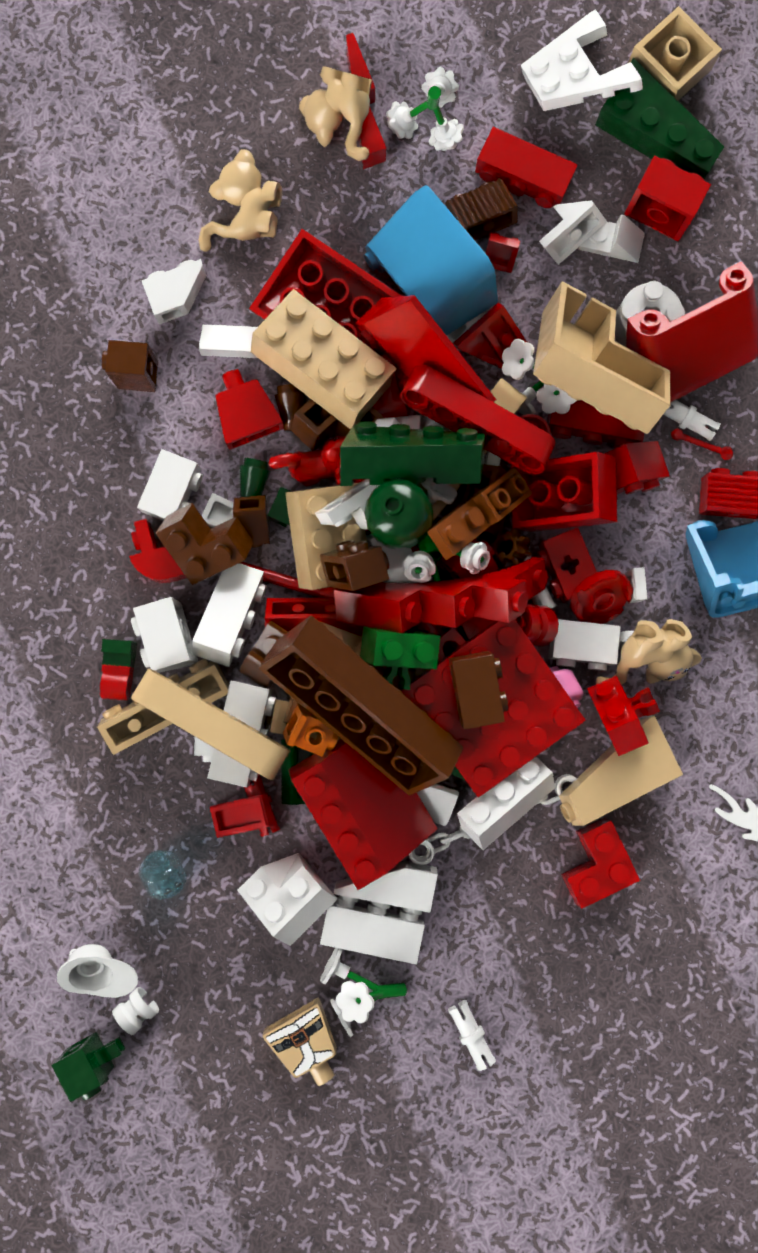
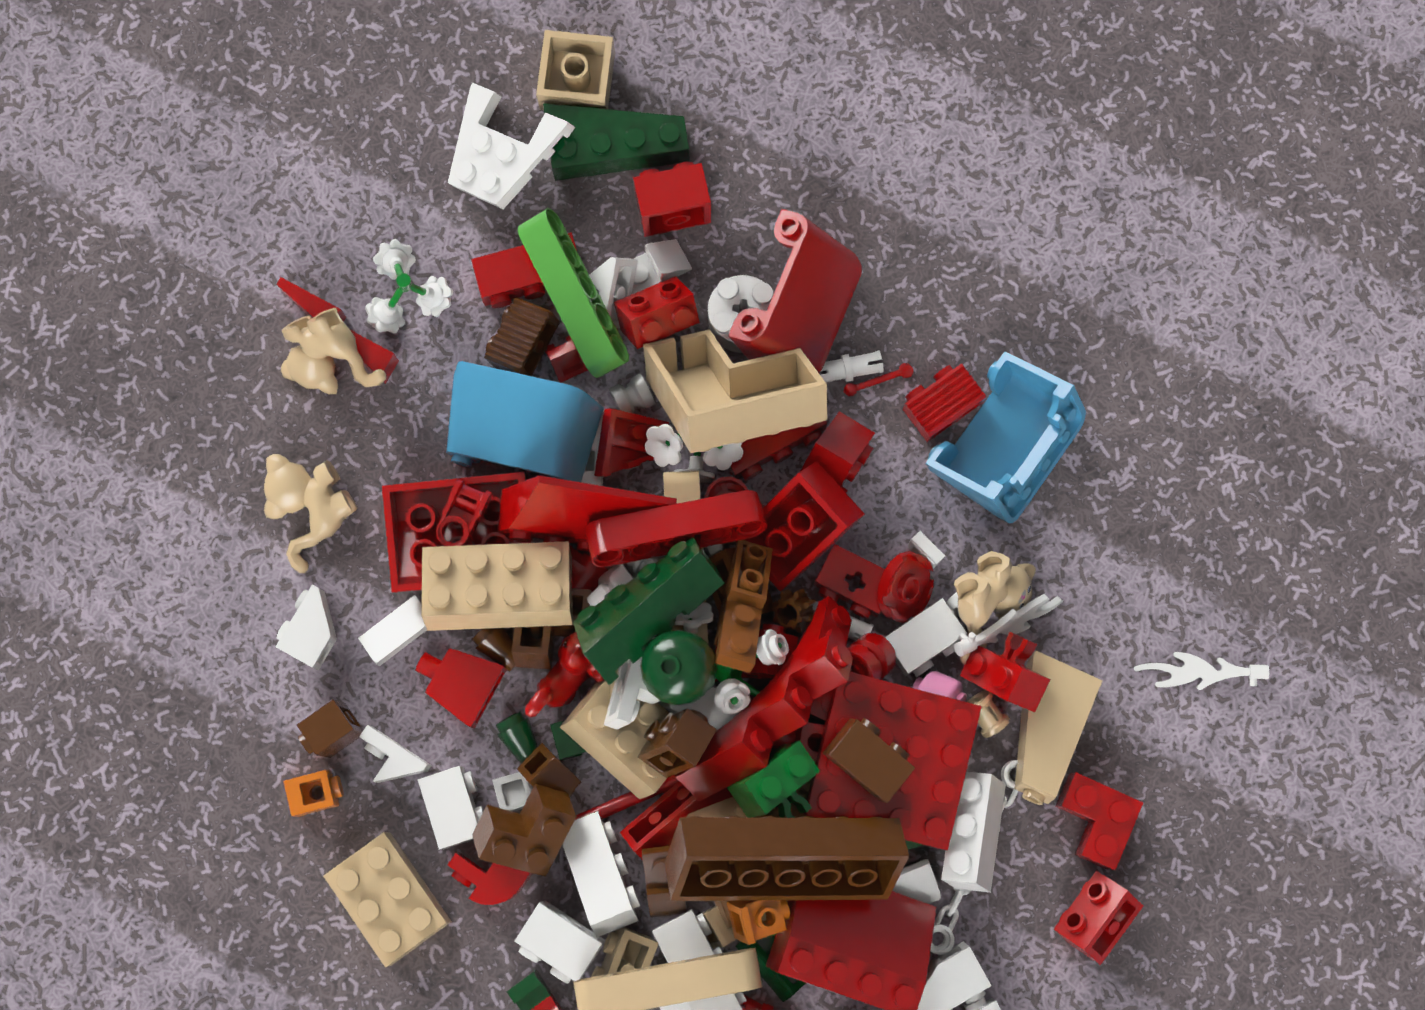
camera: 30 degrees left, 5 degrees down
(76, 511) = (387, 899): none -> tan brick
(78, 393) = (300, 792): none -> orange brick
(161, 427) = (400, 761): none -> white slope
(341, 290) = (463, 512): none -> red piece
(525, 313) = (634, 395): none -> light grey wheel
(542, 929) = (1098, 917): none -> red brick
(544, 203) = (573, 293): none -> bright green beam
(583, 735) = (990, 718): none -> tan bush
(590, 268) = (656, 312): none -> red brick
(654, 682) = (1012, 622): none -> white piece

